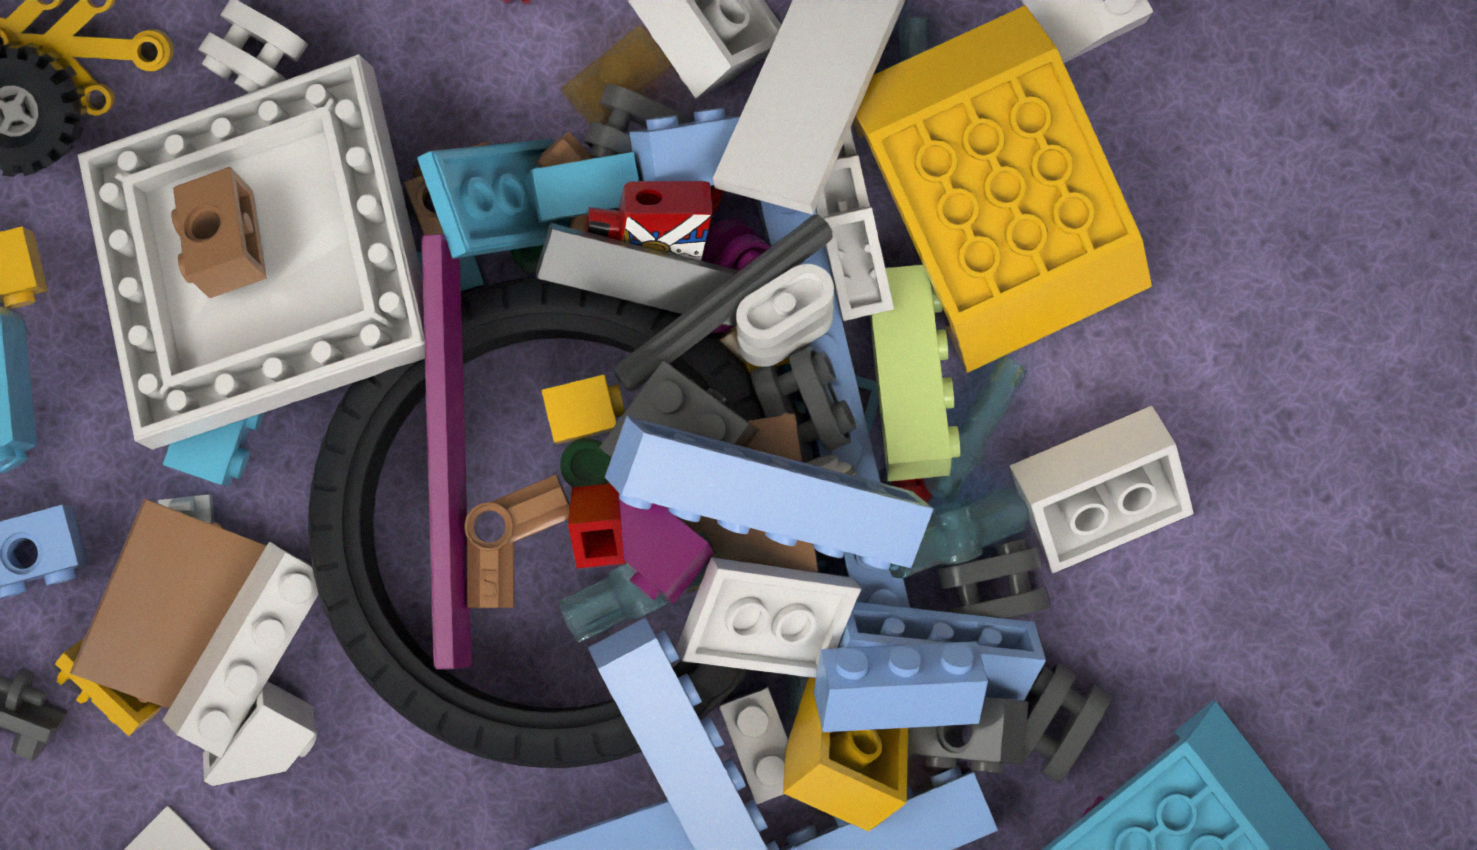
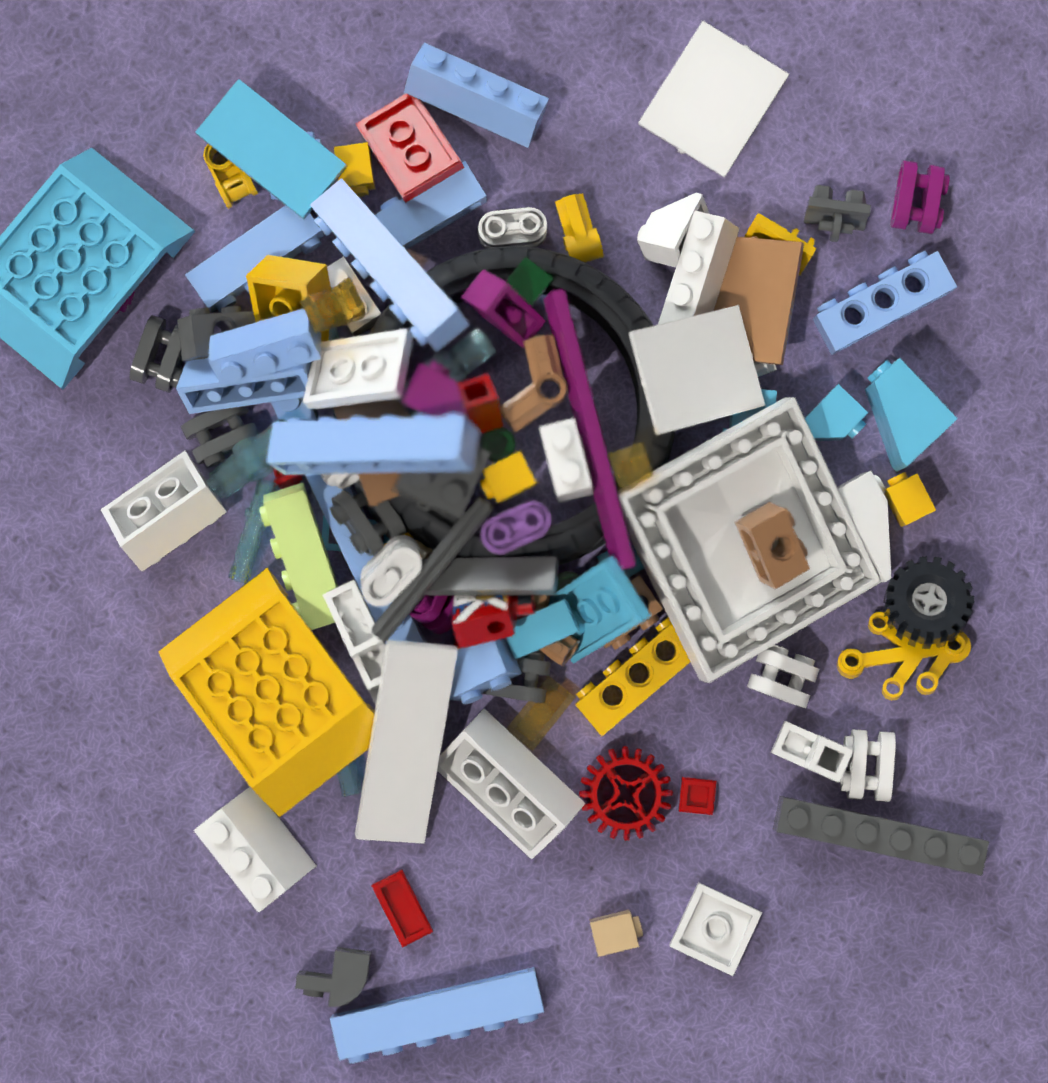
camera: 165 degrees right, 0 degrees up
(69, 258) = (869, 512): none -> white slope
(85, 411) = (836, 416): none -> medium azure slope
(270, 515) = (696, 369): none -> white piece
(396, 386) = (630, 465): none -> clear yellow tile
(401, 762) = (580, 237): none -> yellow piece
(429, 95) = (604, 716): none -> yellow brick
(487, 695) = (529, 281): none -> dark green tile
(489, 415) = (566, 460): none -> white brick
(497, 792) = (513, 228): none -> white brick
(532, 664) = (503, 308): none -> magenta slope
(586, 331) = (515, 528): none -> medium lavender brick
(784, 724) = (334, 306): none -> clear yellow slope

